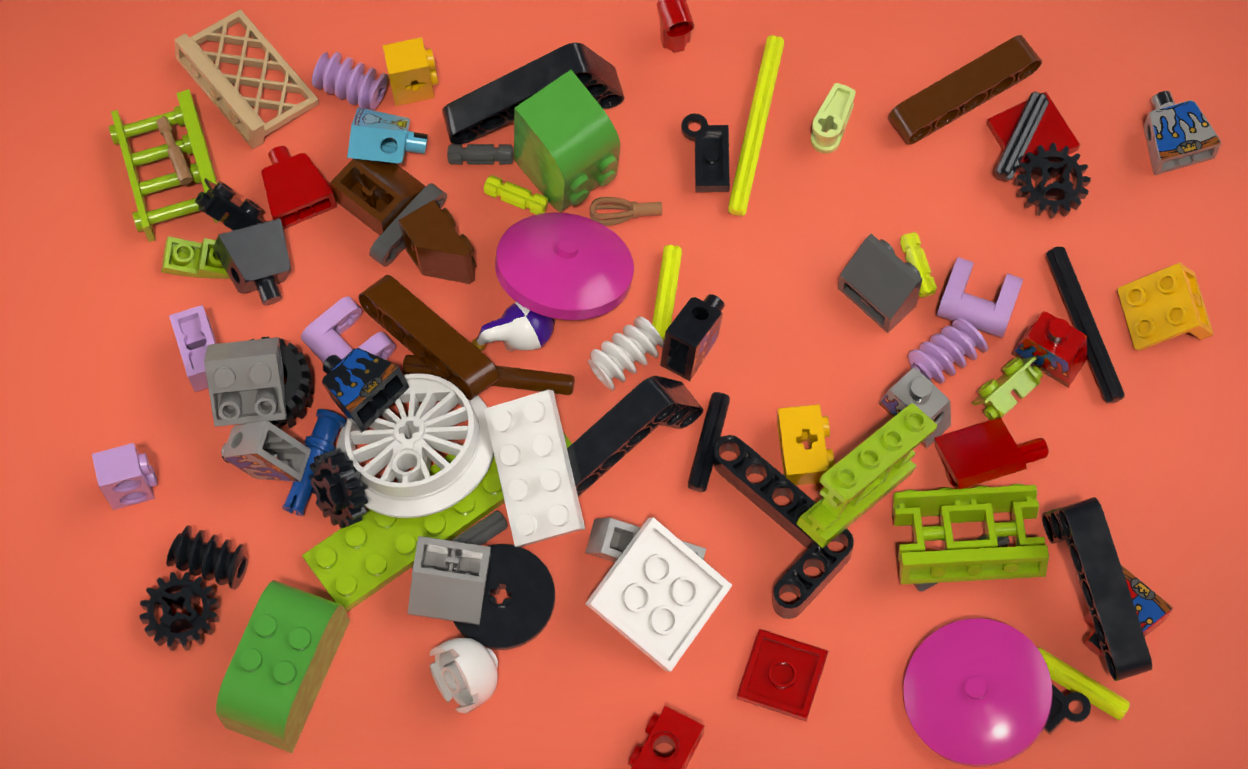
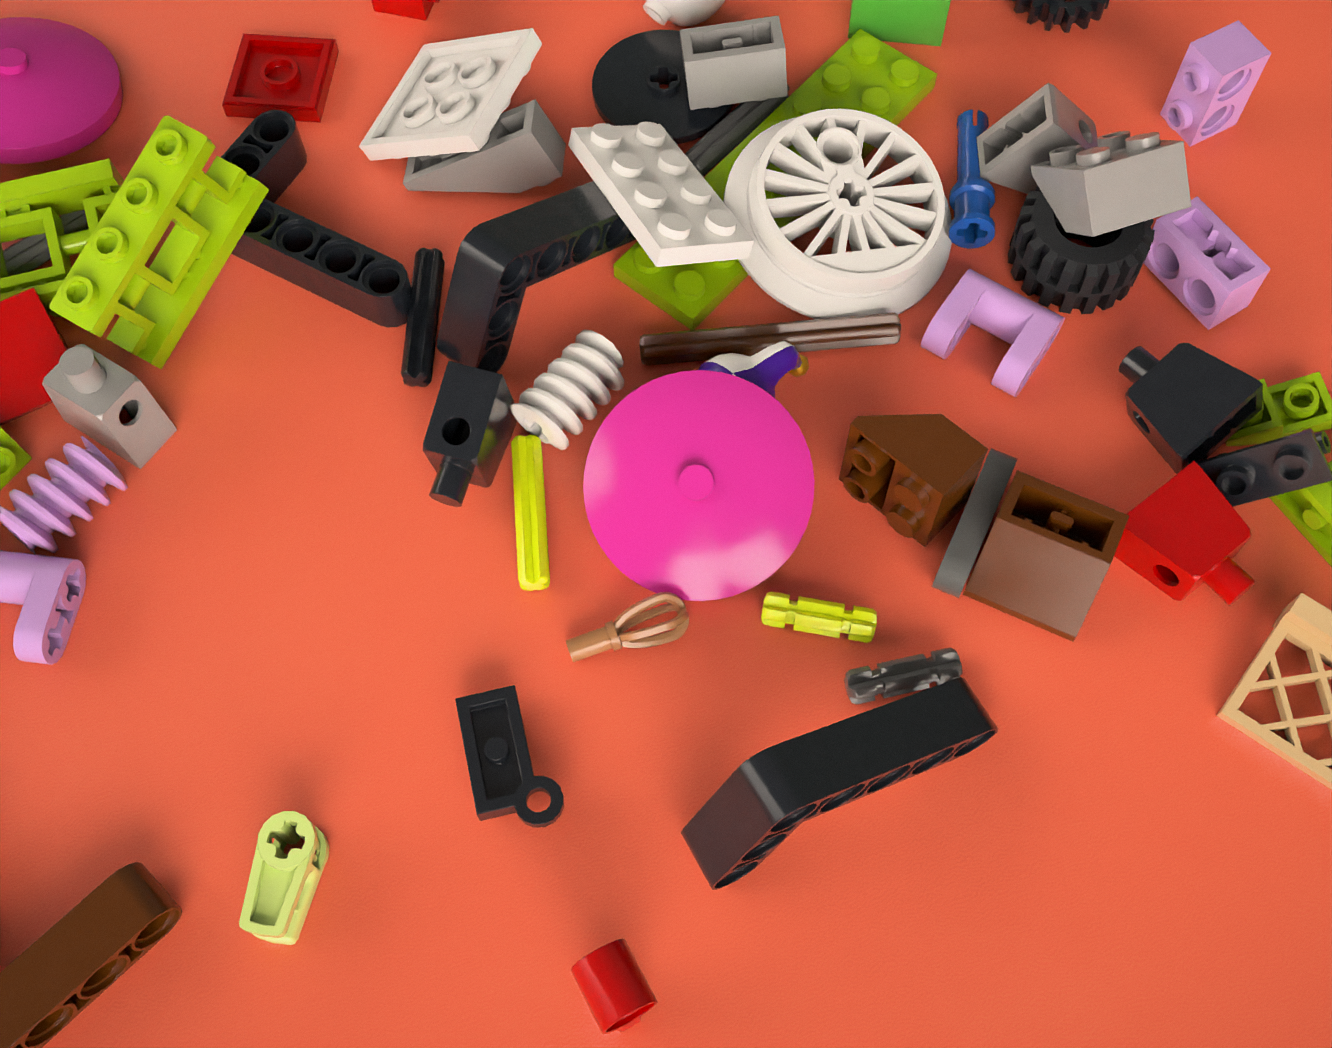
camera: 165 degrees right, 5 degrees down
(208, 558) = (1054, 38): black piece -> none
(338, 489) = (922, 115): black gear -> none
(349, 82) = (1183, 741): lavender piece -> none
(363, 385) = (945, 228): torso -> none
(372, 135) = (1082, 636): medium azure torso -> none
(410, 71) = (1086, 766): yellow brick -> none
(428, 336) = (876, 344): reddish brown beam -> none
(565, 142) = (751, 636): bright green brick -> none
(756, 126) = (428, 856): neon yellow axle -> none
(799, 425) = (278, 328): yellow brick -> none
(881, 283) = (170, 572): dark grey slope -> none
(916, 256) = (117, 646): neon yellow axle -> none

